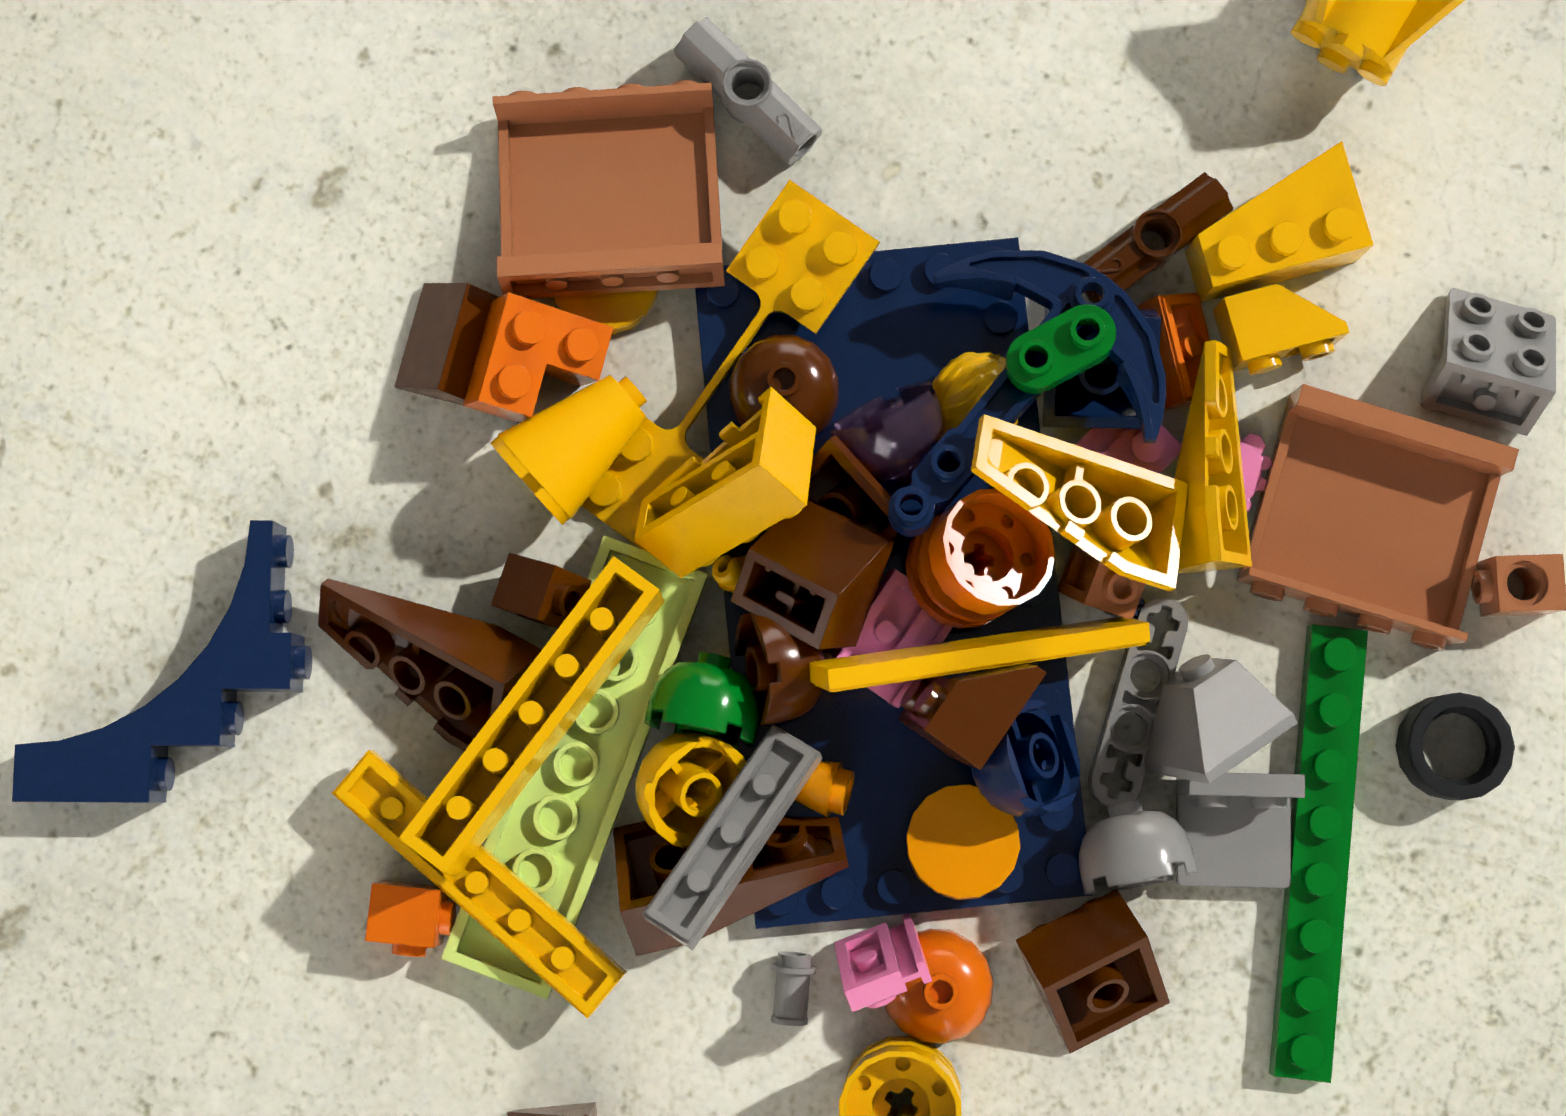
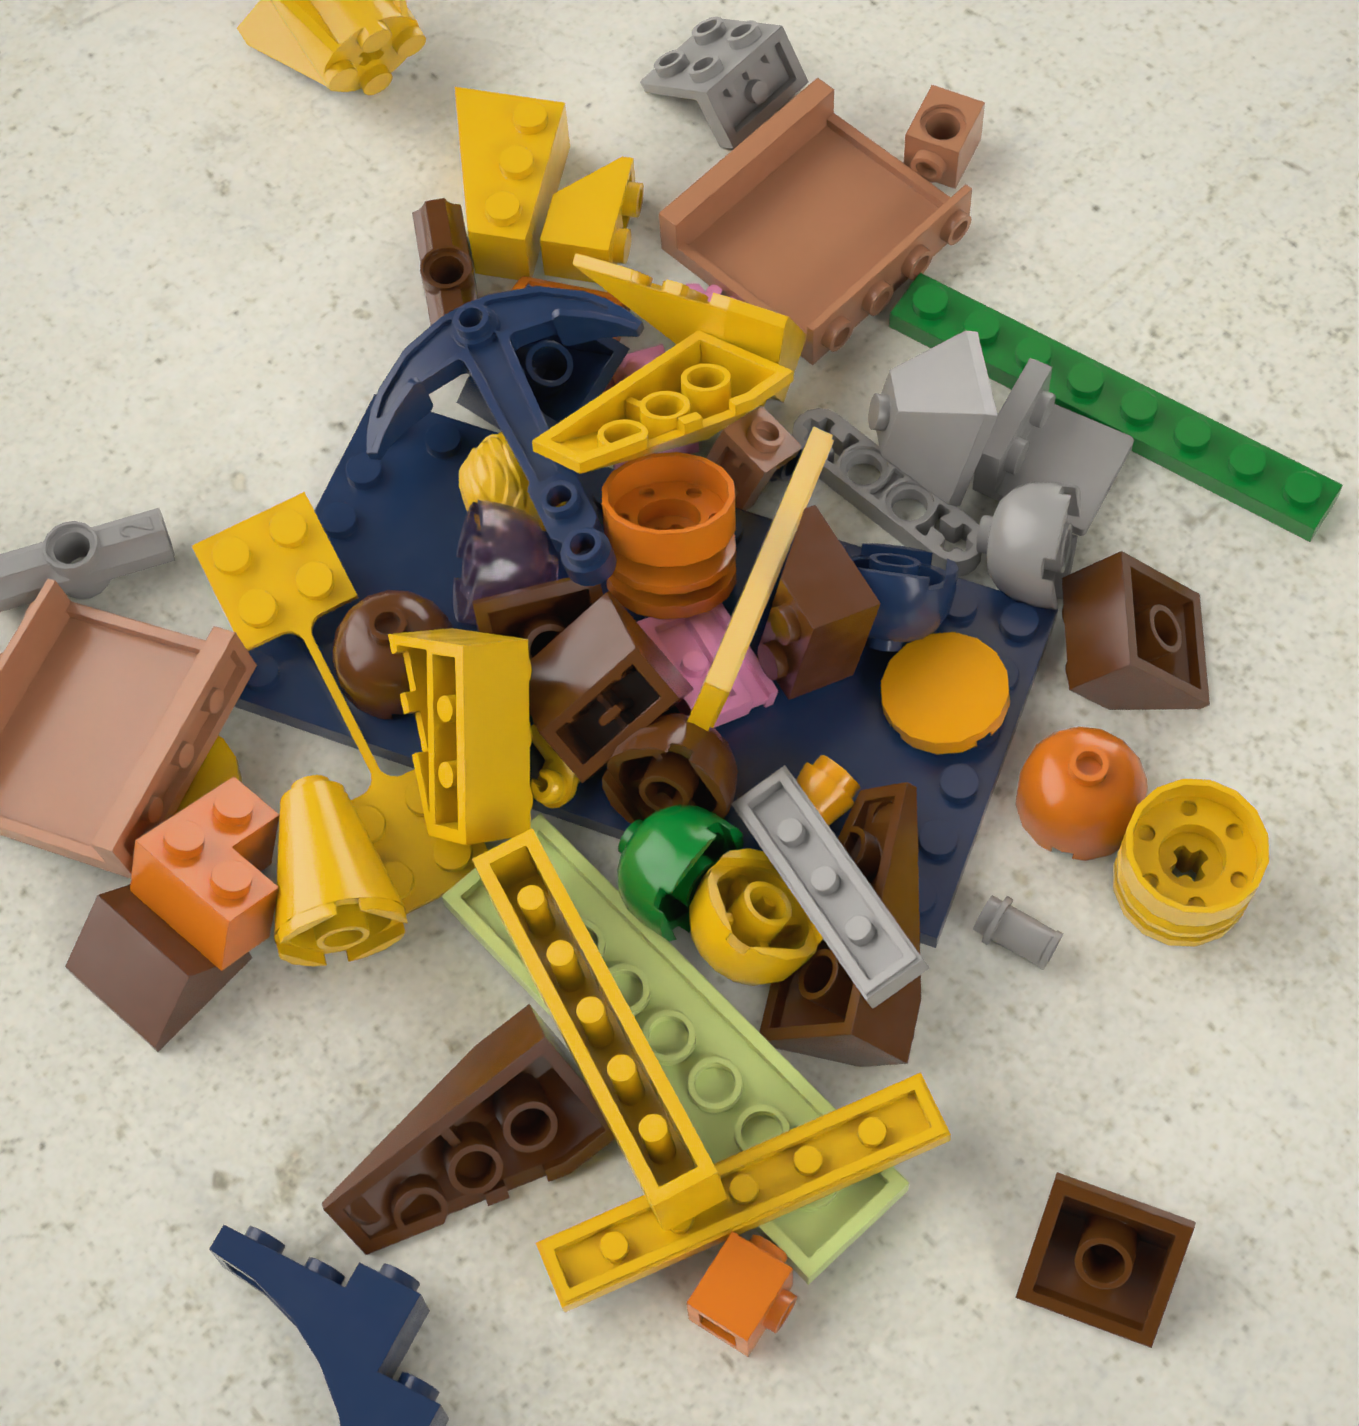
camera: 60 degrees left, 20 degrees down
(538, 590) = (466, 981): reddish brown brick -> none
(879, 963) = (1033, 814): bright pink plate -> none
(1062, 347) = (508, 355): green plate -> none
(1497, 739) = (1076, 216): black tyre -> none

